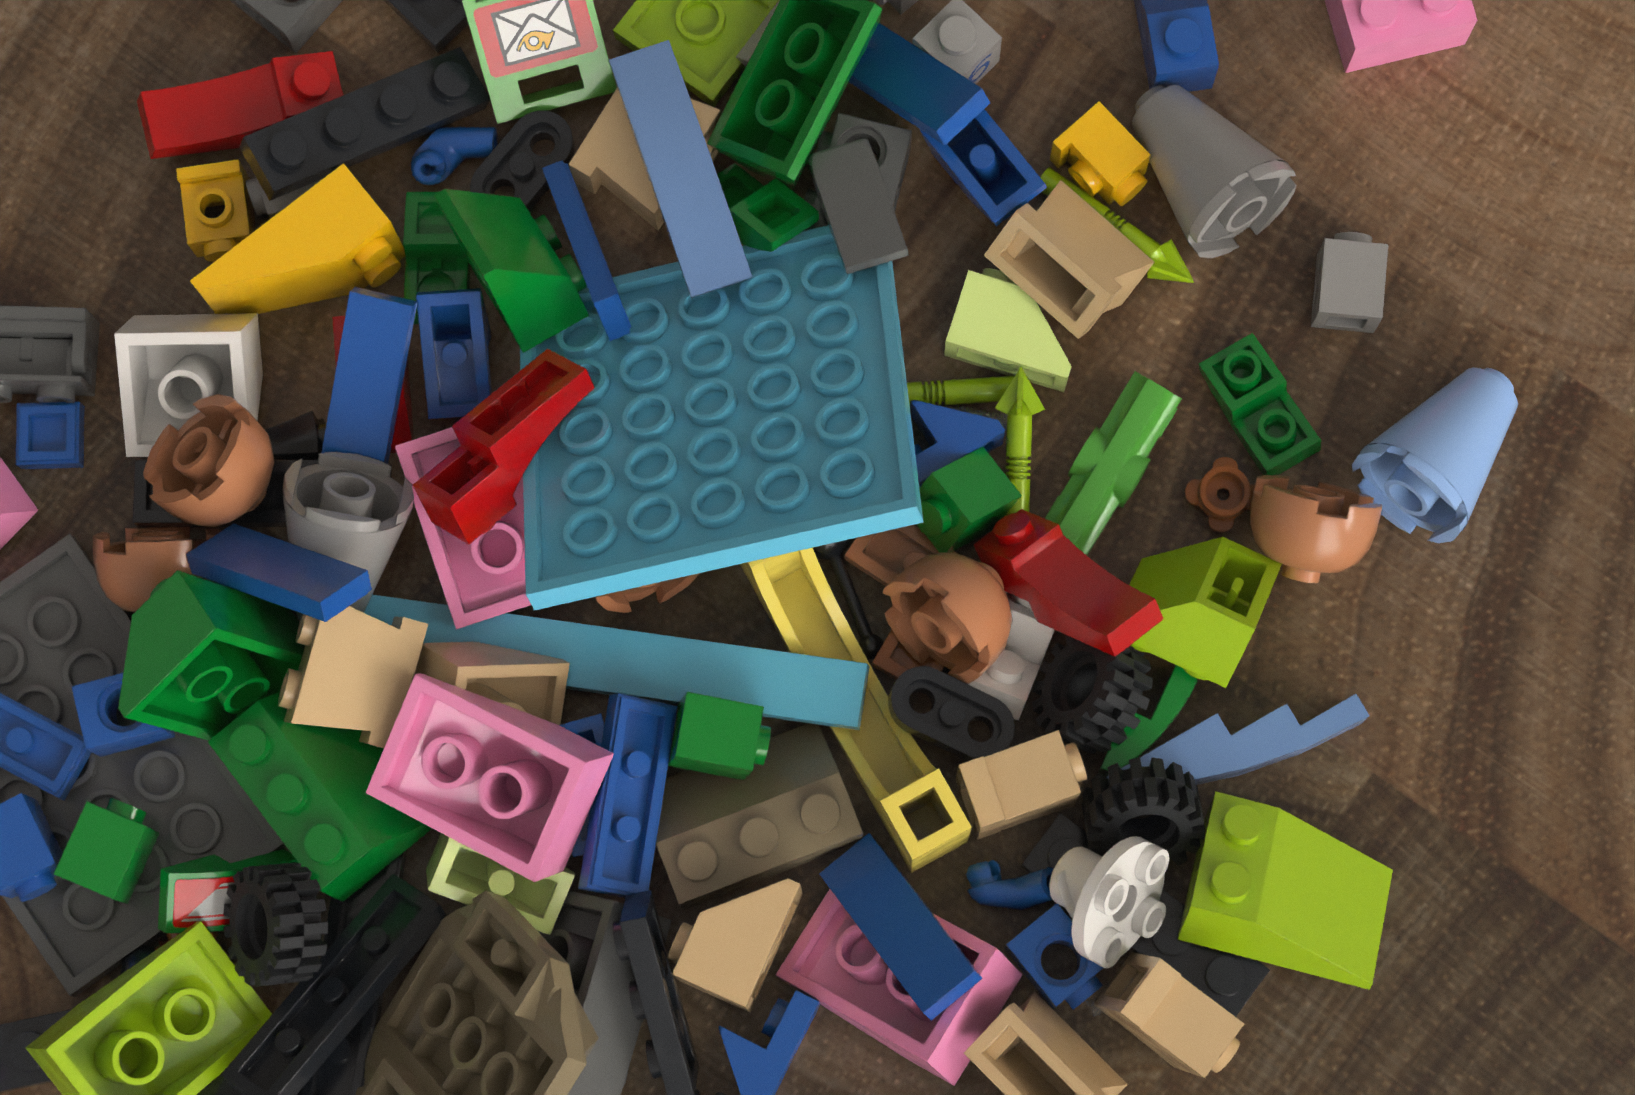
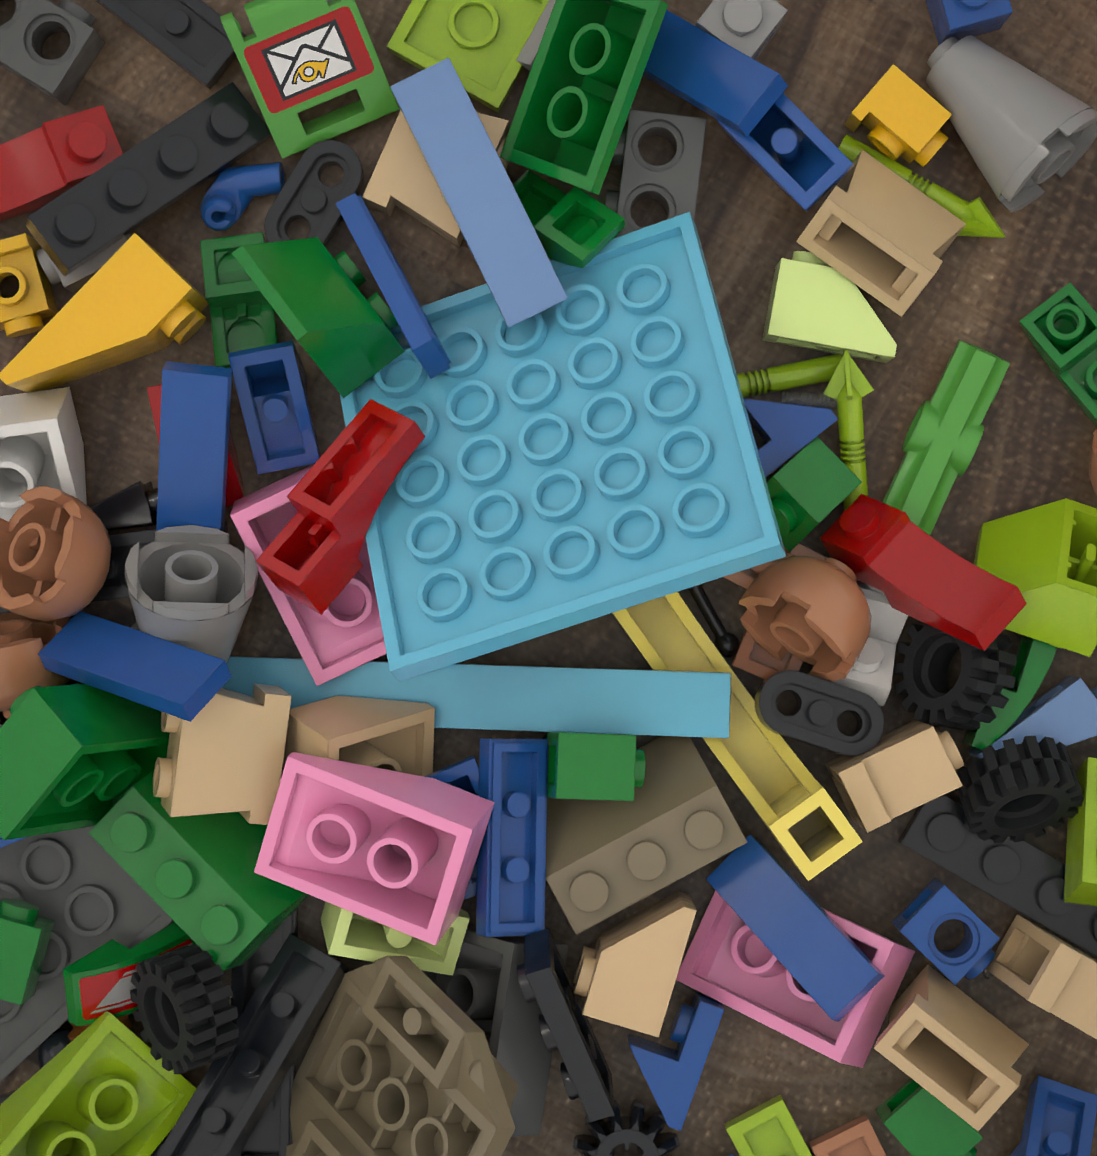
camera: 15 degrees left, 10 degrees up
(857, 205) = (665, 211): dark grey slope -> none
(1013, 893) = (899, 871): blue arm -> none
(1111, 896) = (997, 876): white plate -> none
(1204, 494) = (1038, 449): dark orange plate -> none

